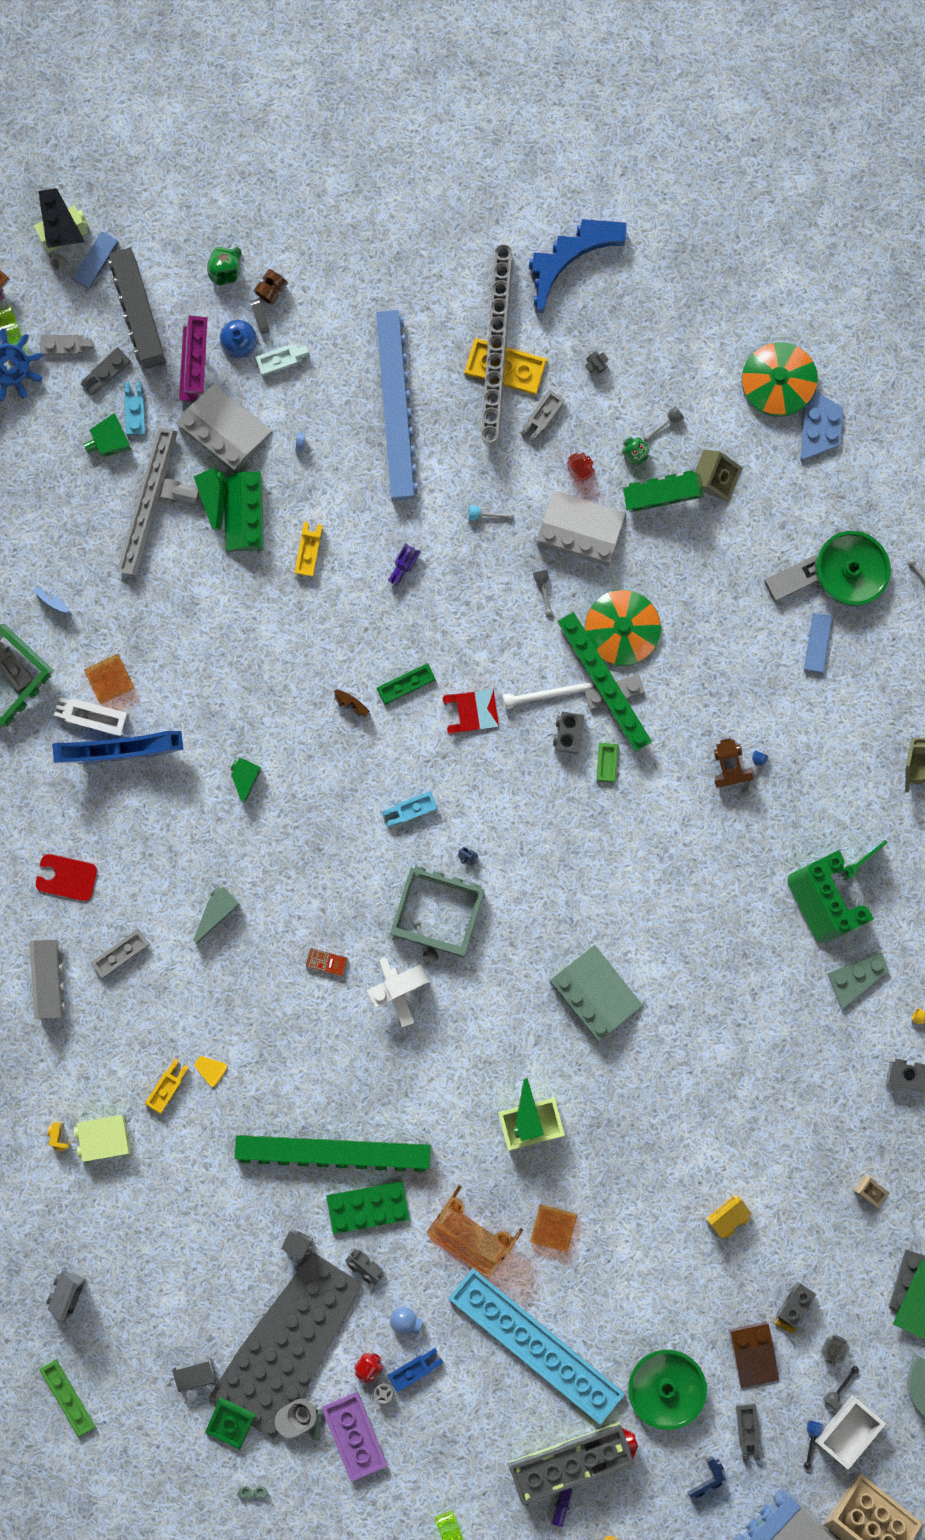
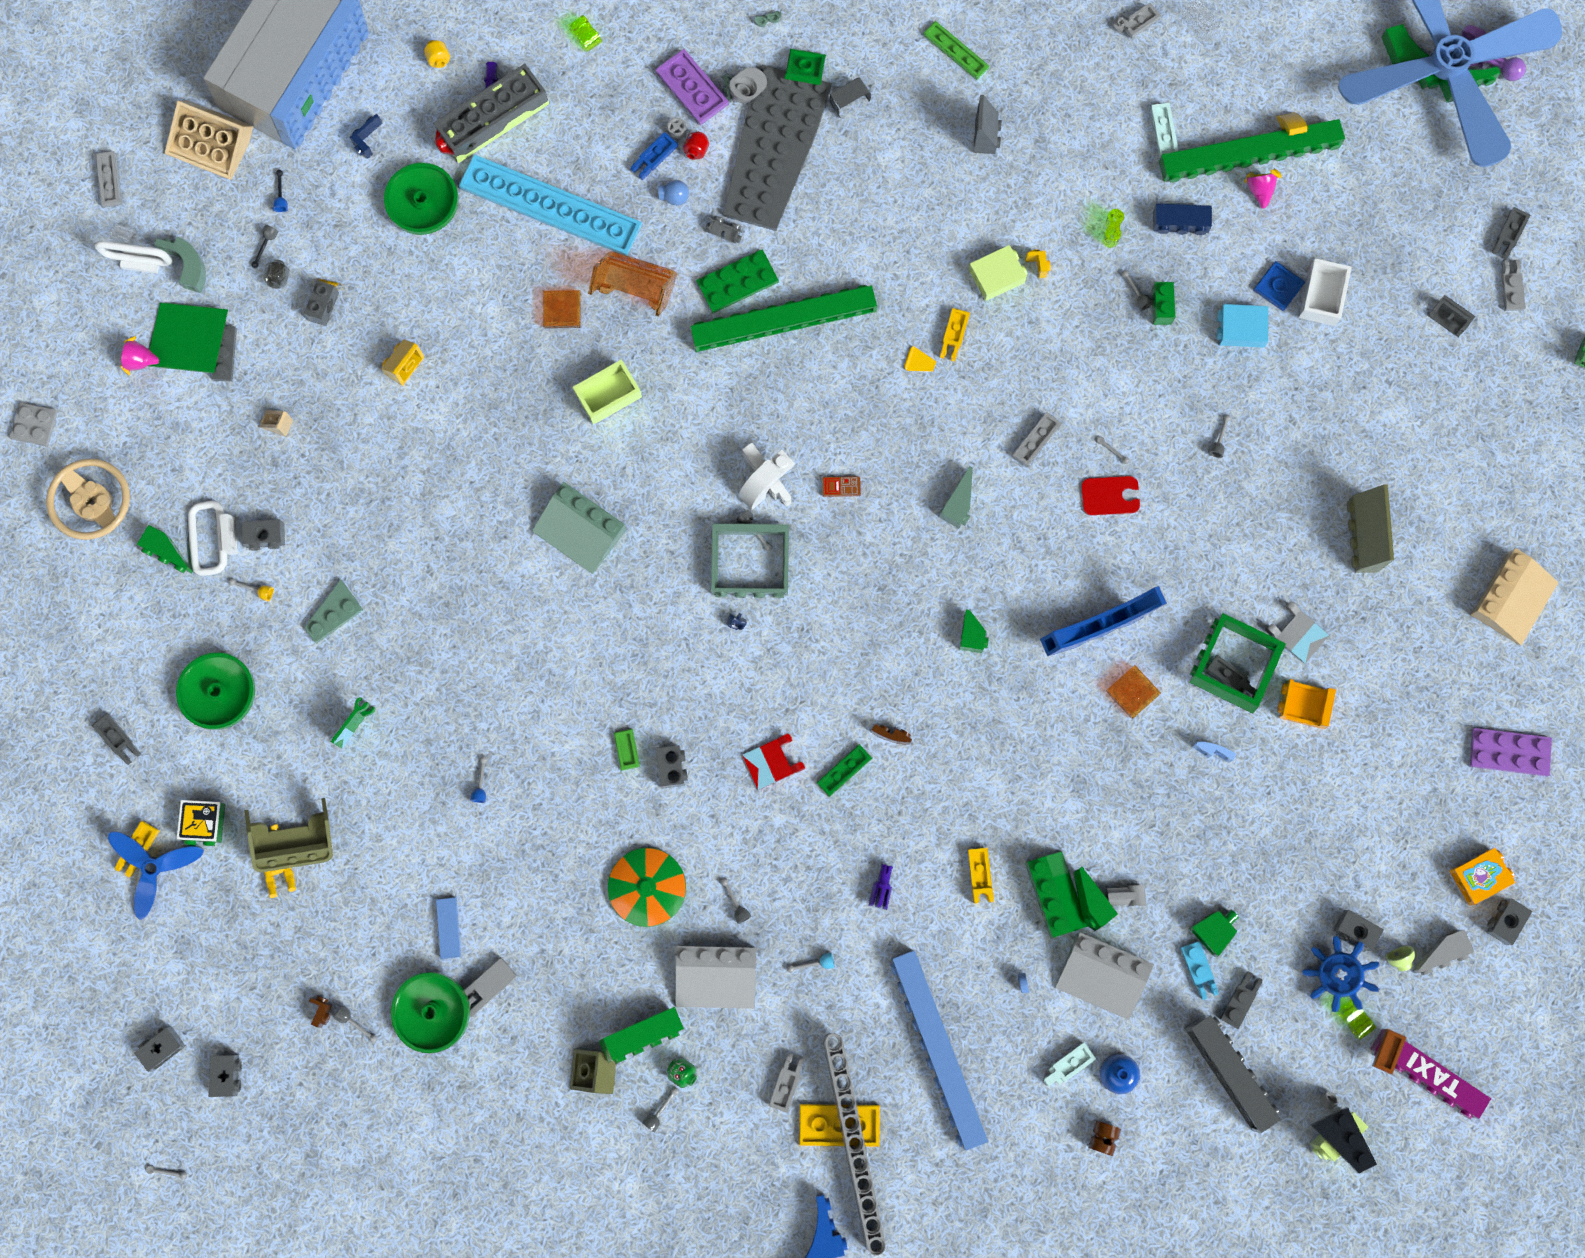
camera: 165 degrees right, 5 degrees down
(46, 979) = (1097, 395): light grey slope -> none
(57, 935) = (1101, 441): none -> light grey hinge
(64, 344) = (1293, 1016): light grey hinge -> none
(95, 260) = (1292, 1115): medium blue tile -> none
(99, 717) = (1130, 651): white hinge -> none
(147, 501) = (1155, 877): light grey plate -> none
(193, 358) = (1158, 1034): magenta fence -> none
(224, 265) = (1160, 1148): green piece -> none
(259, 315) = (1105, 1104): dark grey beam -> none
(297, 1244) = (791, 228): dark grey brick -> none
(411, 808) = (803, 651): medium azure hinge -> none
(511, 700) = (736, 782): white piece -> none
(527, 1116) = (609, 387): green slope -> none
(580, 467) = (733, 1039): clear red brick -> none
(596, 362) = (746, 1155): dark grey gear -> none
(604, 682) = (650, 826): green plate -> none
(629, 686) = (638, 821): light grey plate -> none
(728, 749) = (510, 790): reddish brown tile -> none
(748, 1429) = (340, 188): dark grey hinge -> none
(754, 1354) = (351, 252): reddish brown slope -> none
(779, 379) = (553, 1193): dish -> none
(821, 426) = (500, 1158): medium blue wing -> none
(822, 902) = (384, 672): green windscreen -> none
(850, 1432) = (246, 207): white piece -> none

